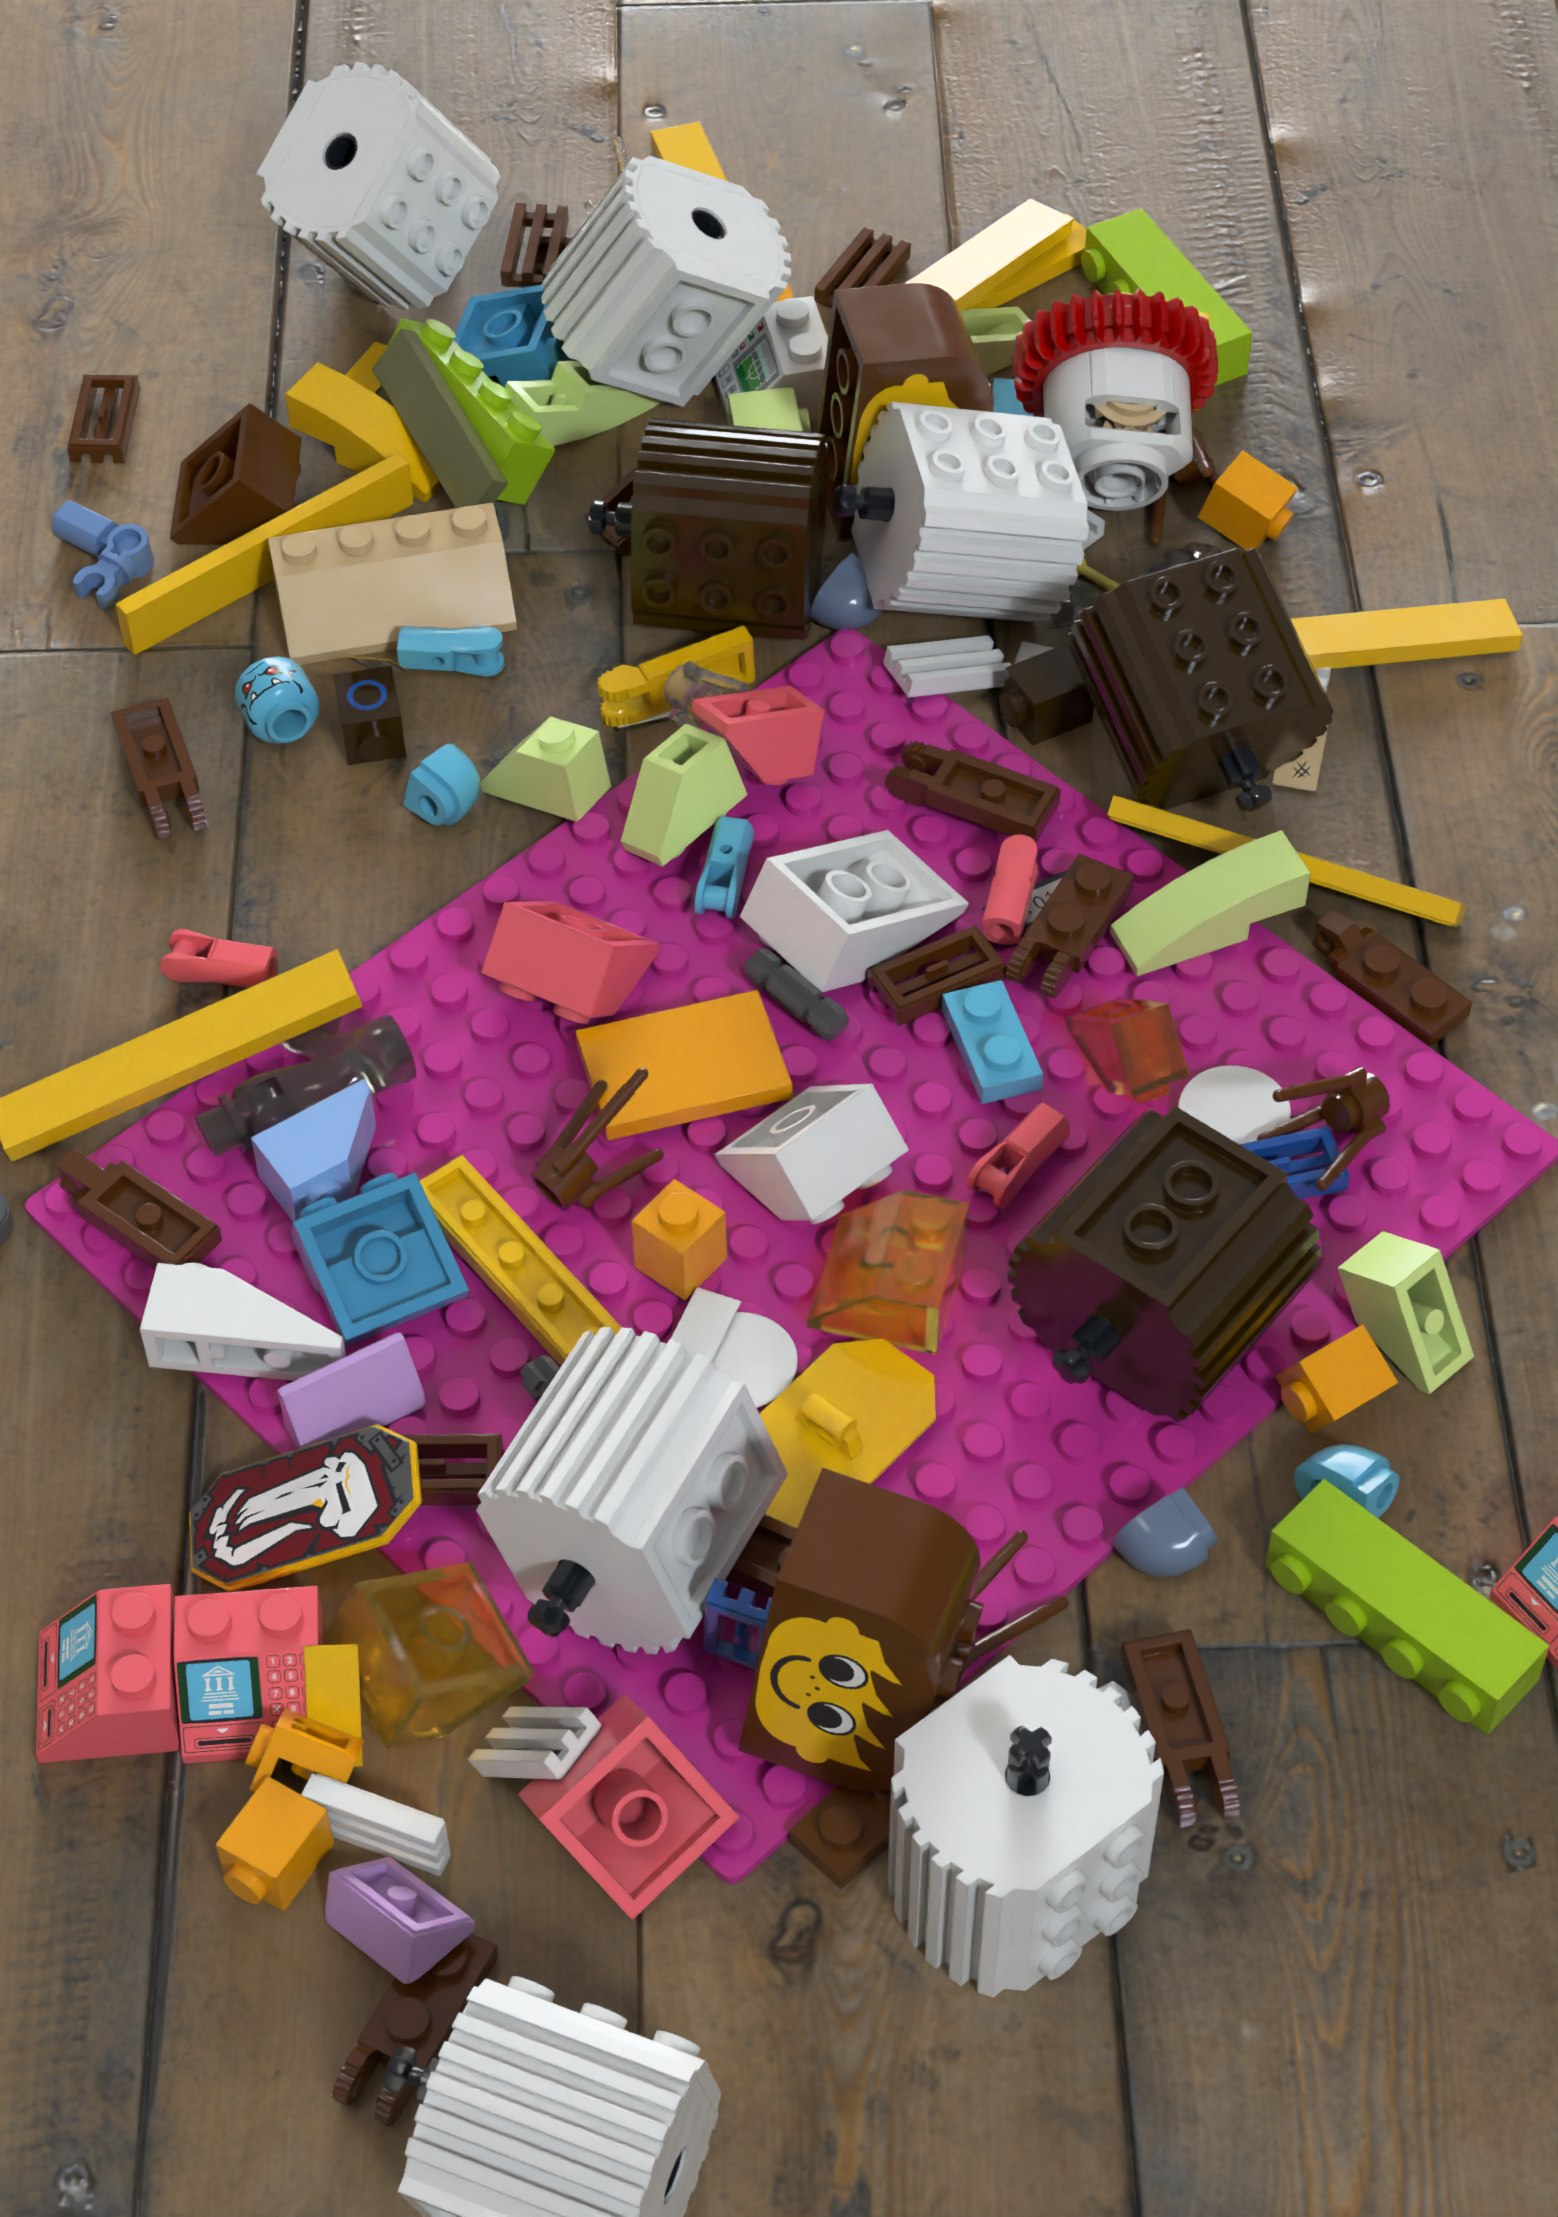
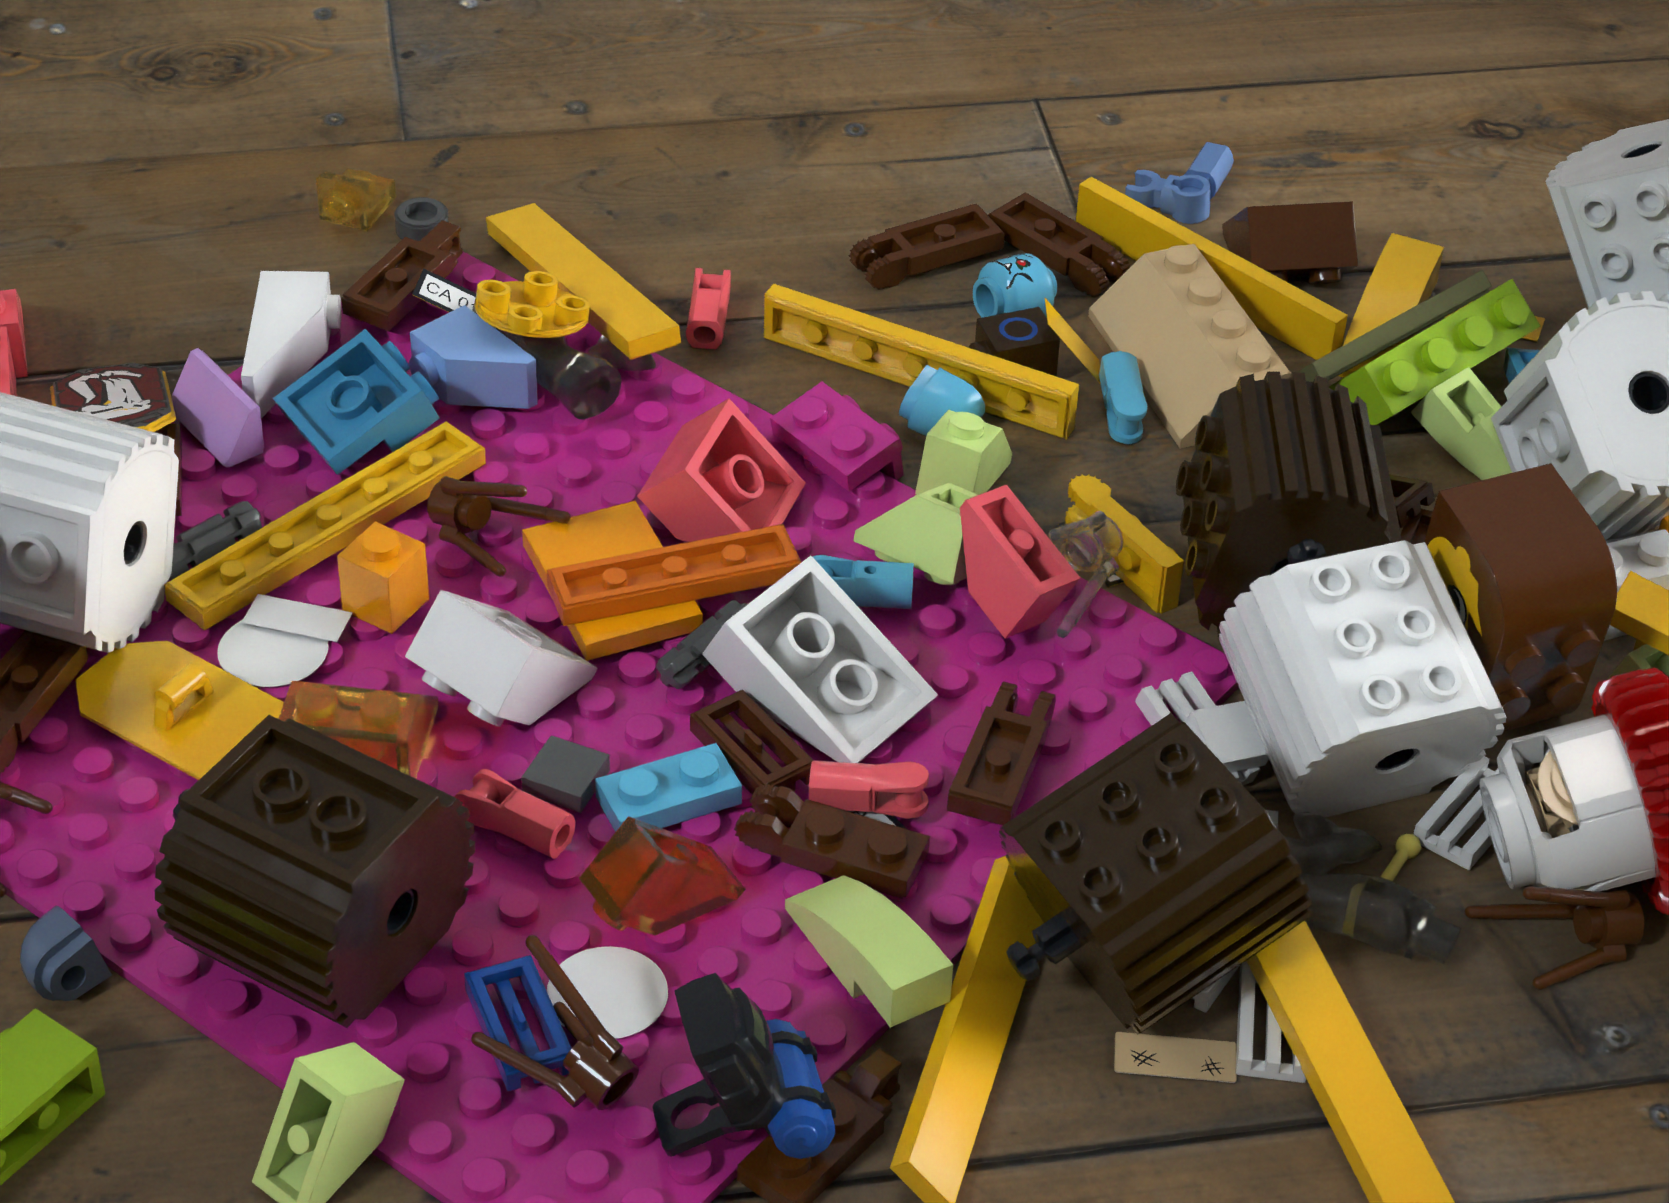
camera: 80 degrees right, 10 degrees down
(101, 444) = (1362, 168): reddish brown tile -> none
(184, 660) = (1060, 243): none -> reddish brown hinge
(192, 1167) = (442, 292): none -> sticker
(286, 1069) = (531, 306): none -> yellow dish
(363, 797) = (902, 354): none -> yellow tile
(491, 864) = (839, 437): none -> dark pink bracket
(709, 1003) = (671, 574): none -> orange tile
(962, 1117) = (565, 773): none -> dark grey tile
(969, 639) = (1229, 735): none -> white tile
(1249, 503) = (1536, 970): light orange brick -> none
(1335, 1380) = (236, 1071): light orange brick -> none
(1354, 1471) = (117, 1097): medium azure piece -> none
(1382, 986) = (753, 1069): none -> black piece

